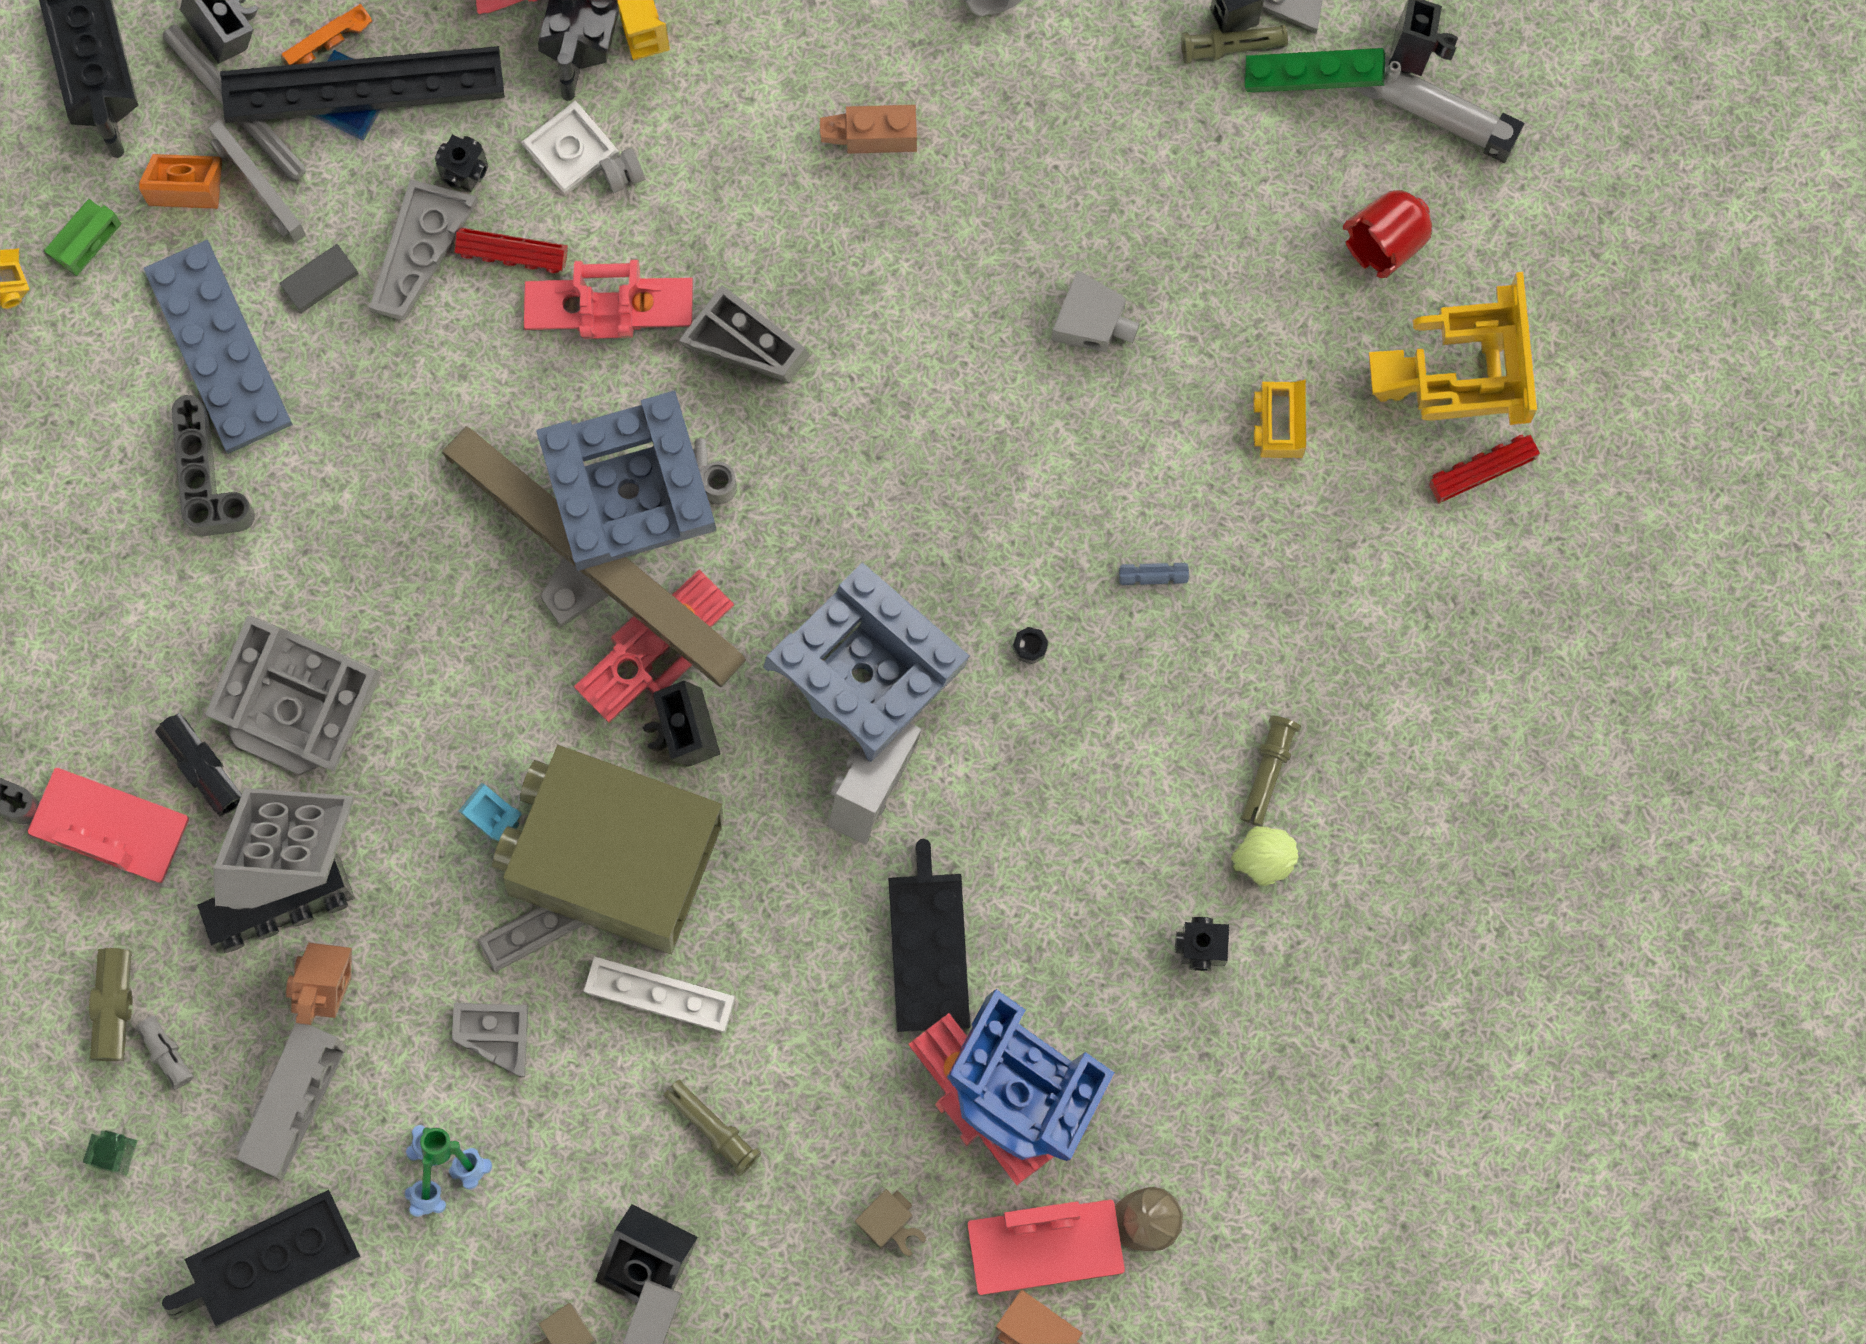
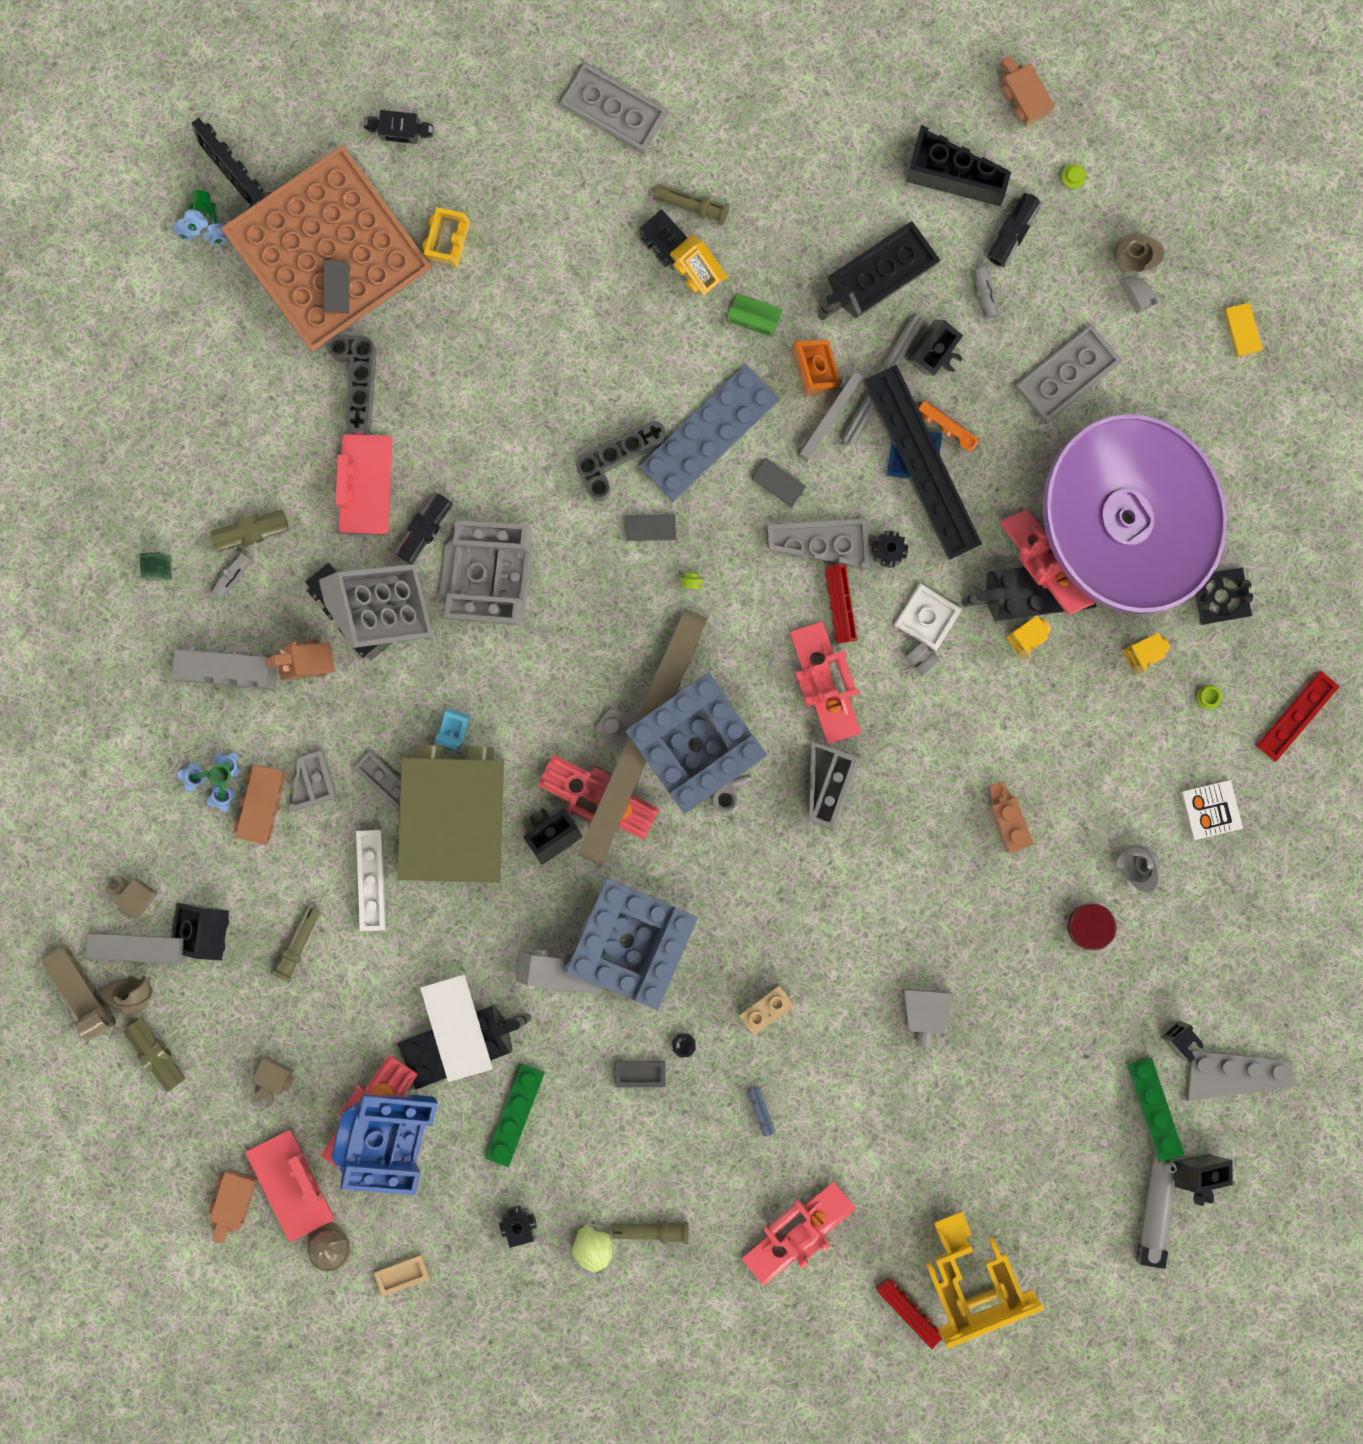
camera: 75 degrees right, 10 degrees up
(266, 1261) = (118, 691): black hinge -> none
(315, 463) = (650, 527): none -> dark grey tile
(406, 431) = (691, 580): none -> lime plate
(498, 1114) = (260, 804): none -> nougat brick
(902, 936) = (456, 1028): none -> white sticker
(1019, 520) = (766, 1010): none -> tan window
(1050, 73) = (1092, 926): none -> dark red head
(1050, 717) = (640, 1074): none -> dark grey tile
(1050, 903) = (515, 1115): none -> green plate
(1216, 49) = (1153, 1034): olive pin -> none
(1220, 1131) = (402, 1275): none -> tan tile
(1281, 419) = (897, 1164): yellow window -> none
(1342, 569) = (804, 1239): none -> coral piece
(1389, 231) = (1054, 1198): red cylinder -> none

